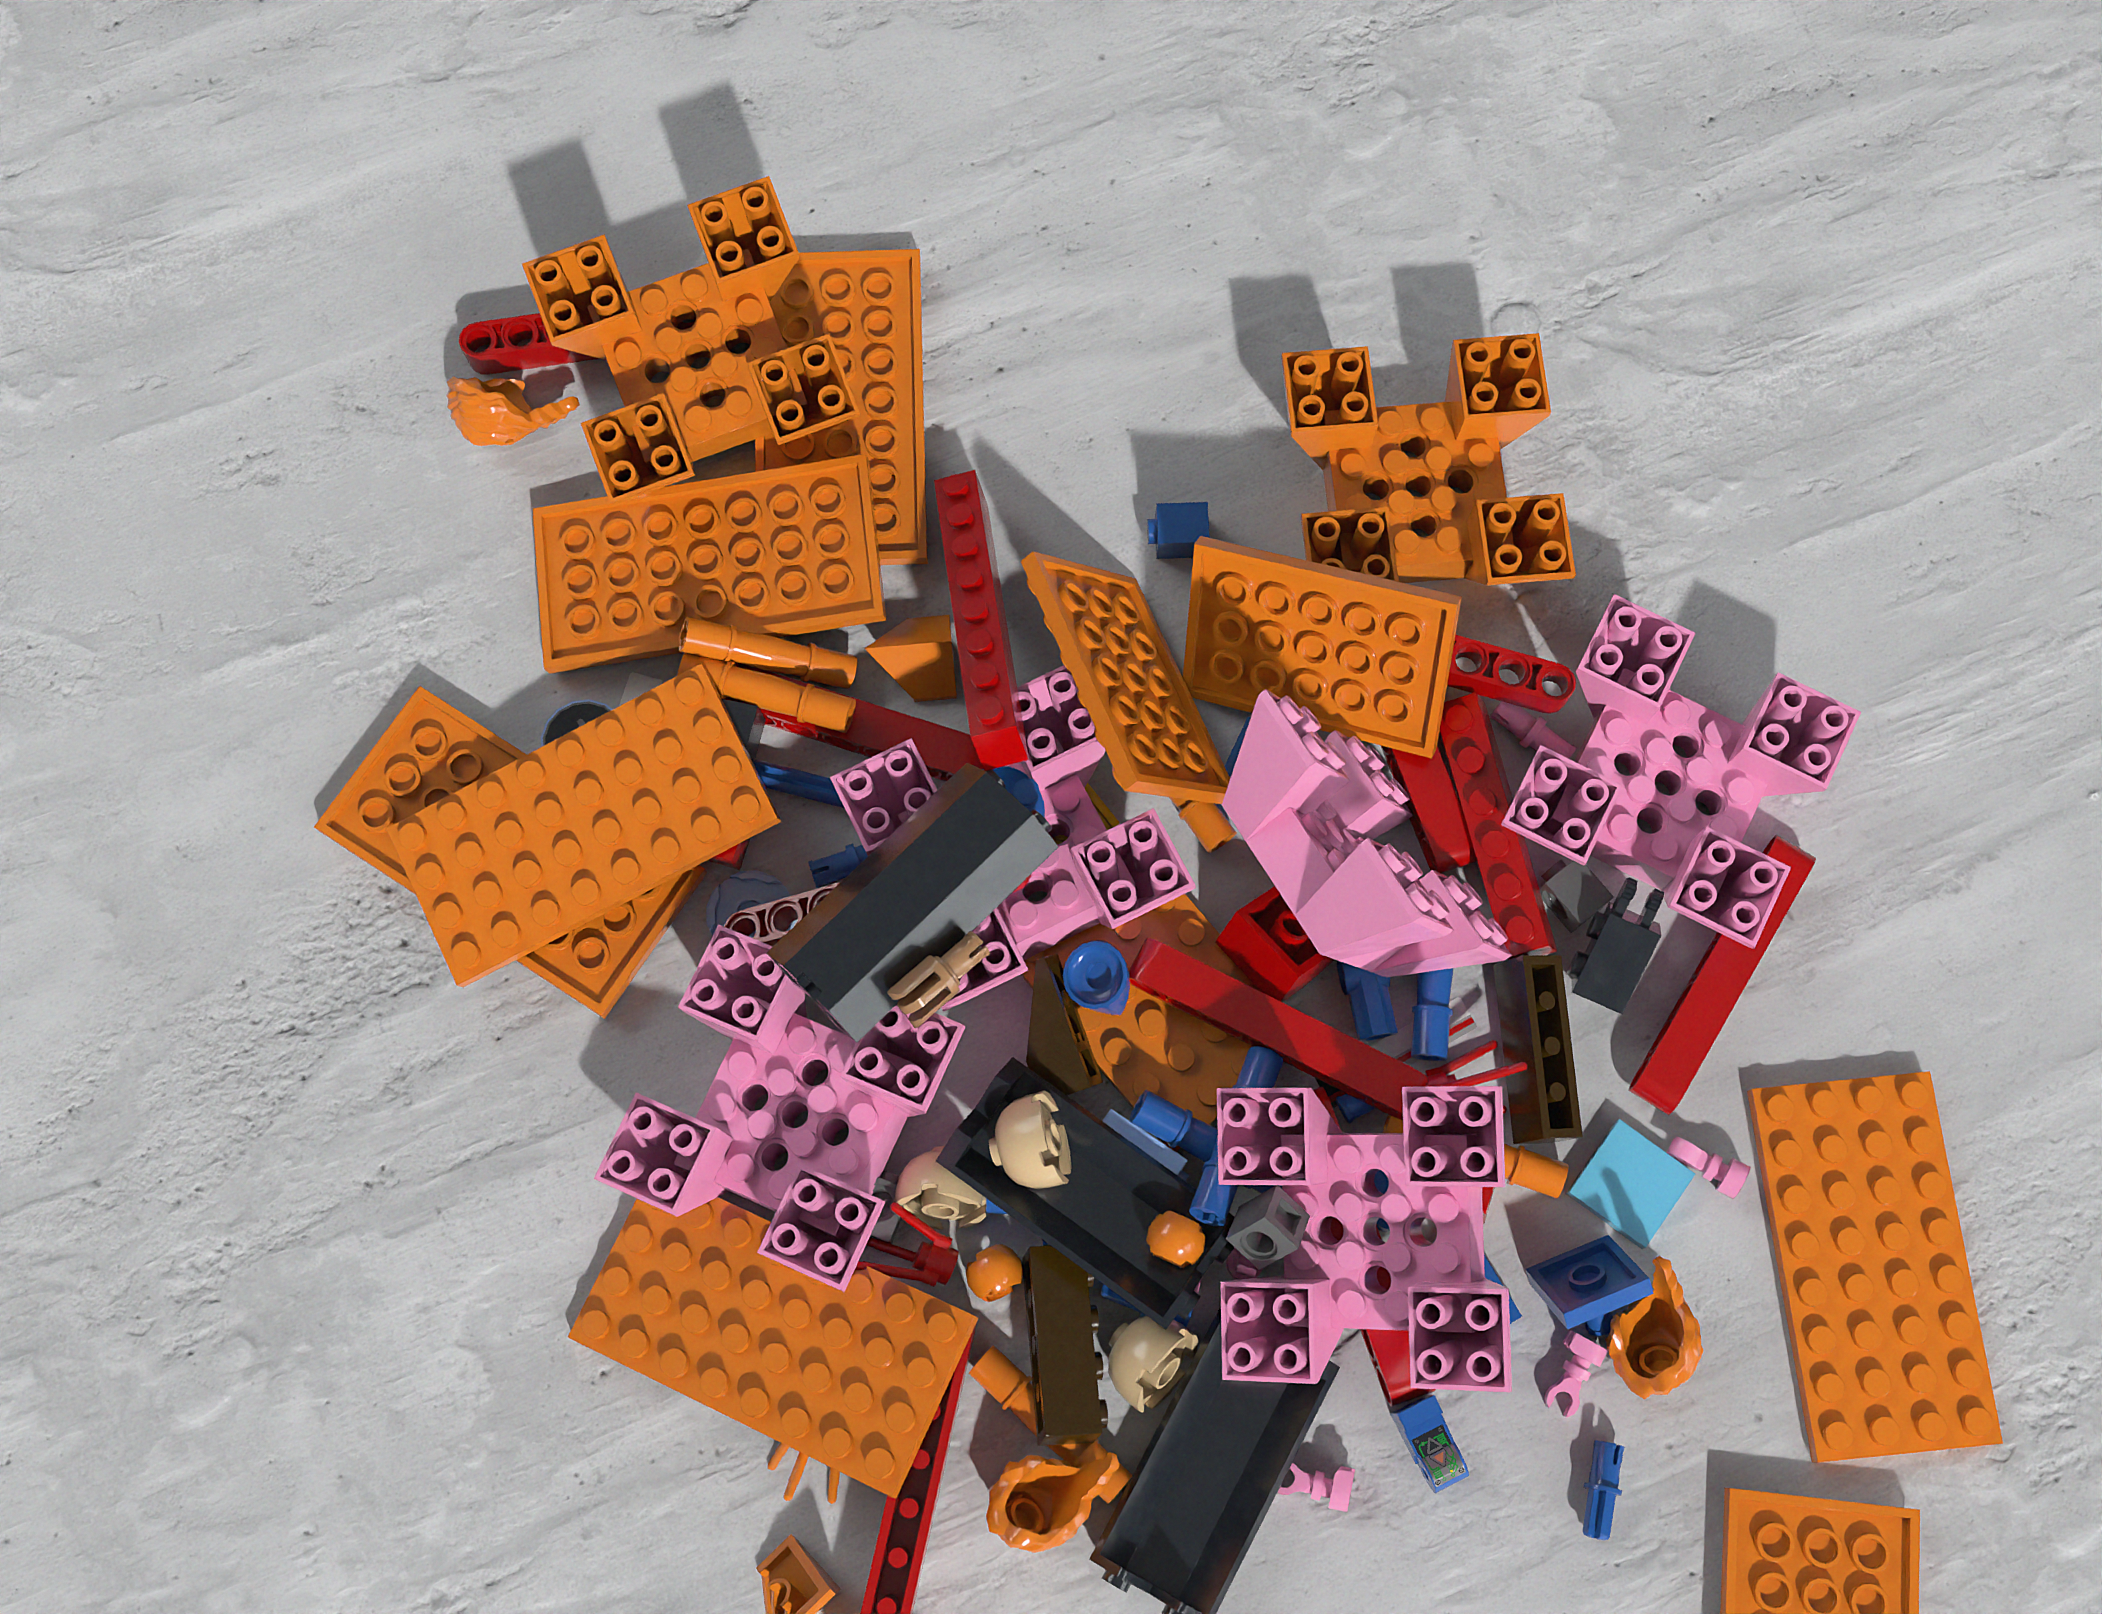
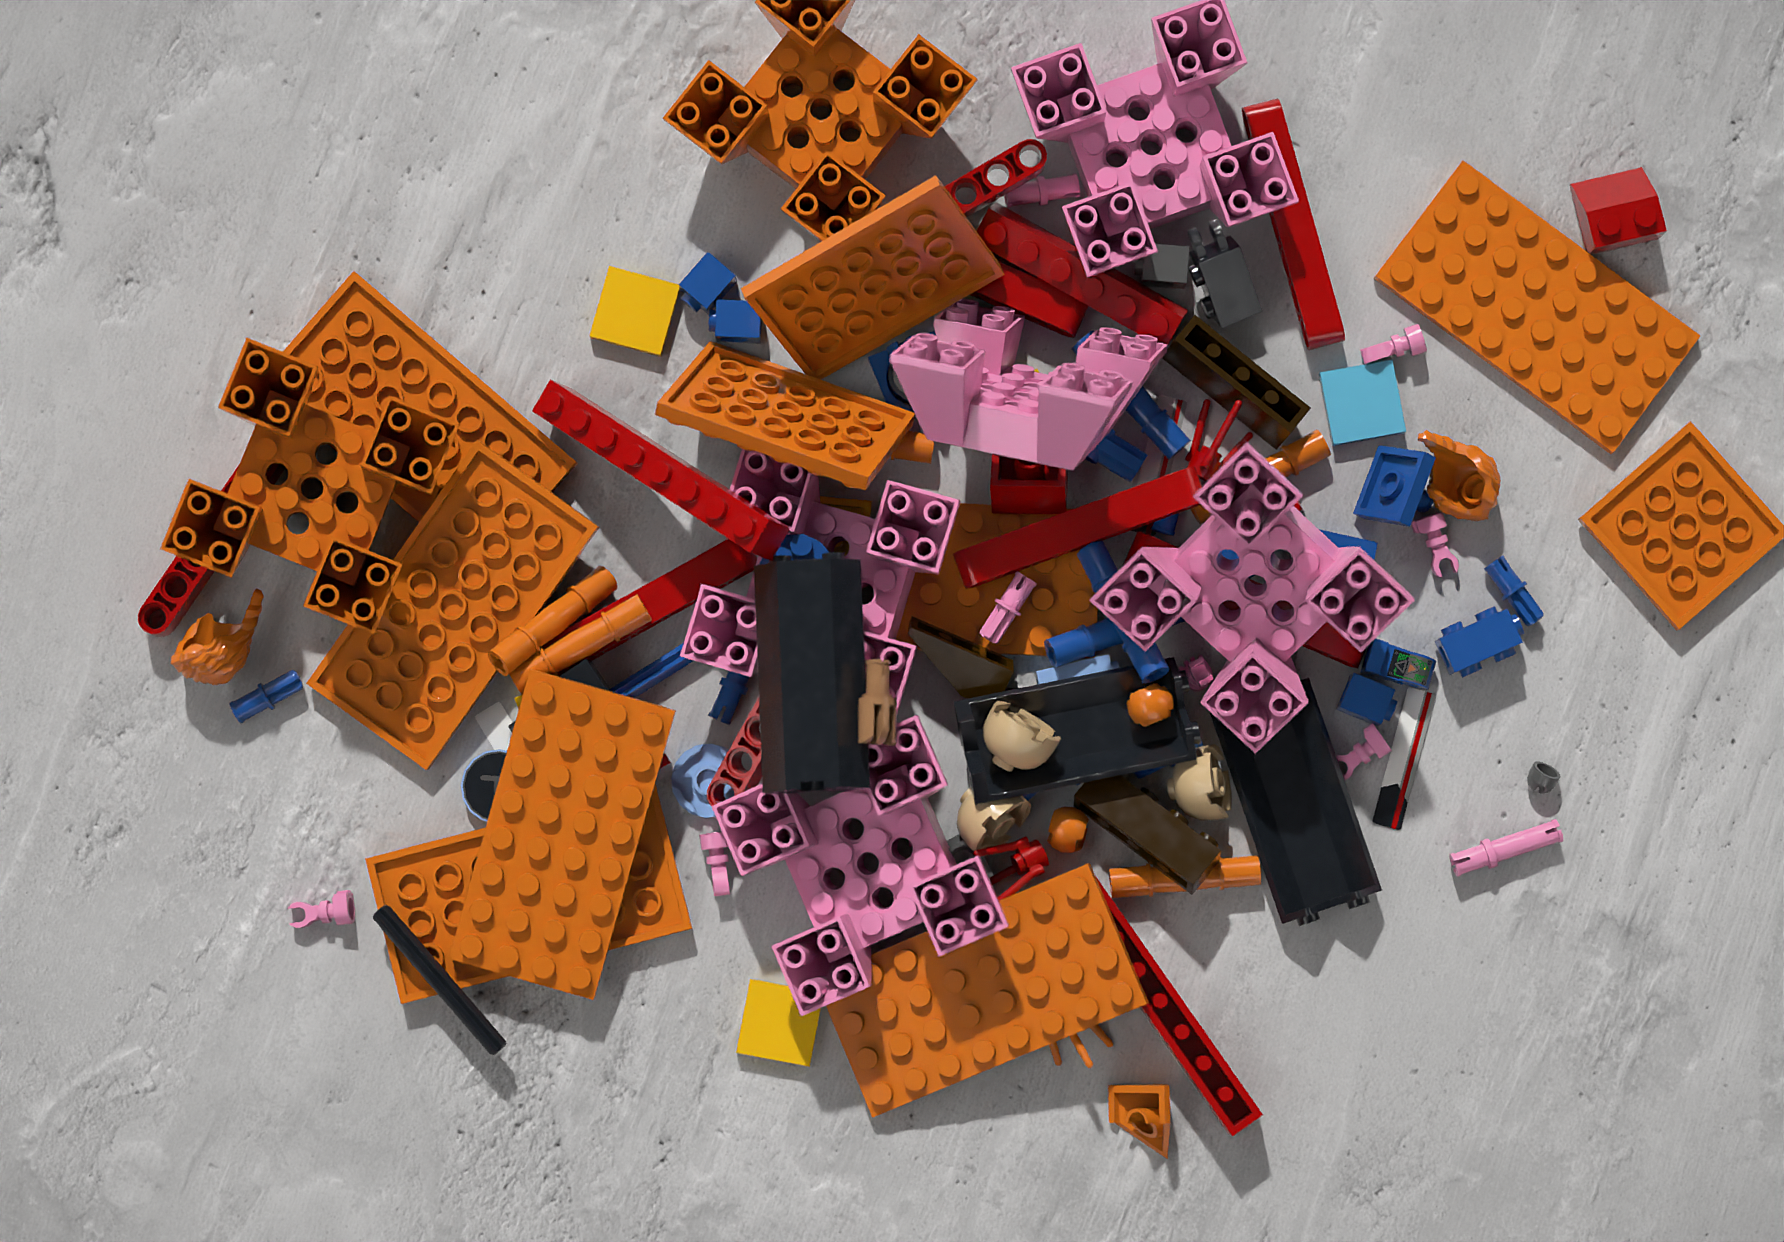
camera: 45 degrees left, 10 degrees up
(356, 705) = (341, 910): none -> bright pink piece
(361, 839) = (439, 979): none -> black axle
(493, 488) = (266, 696): none -> blue axle
(567, 1170) = (774, 1025): none -> yellow tile
(669, 1001) = (715, 843): none -> bright pink piece
(919, 657) = (637, 524): orange slope -> none
(1045, 1500) = (1226, 918): orange hair -> none
(1097, 977) = (949, 605): blue piece -> none
(1100, 496) = (635, 311): none -> yellow tile
(1143, 1031) = (1007, 608): none -> bright pink axle
(1168, 581) = (735, 322): none -> blue brick
(1268, 1227) = (1195, 645): dark grey brick -> none
(1350, 1531) = (1404, 758): none -> sticker
(1371, 1444) = (1367, 700): none -> blue brick
(1538, 1504) = (1490, 636): none -> blue brick
(2031, 1258) = (1617, 211): none -> red slope

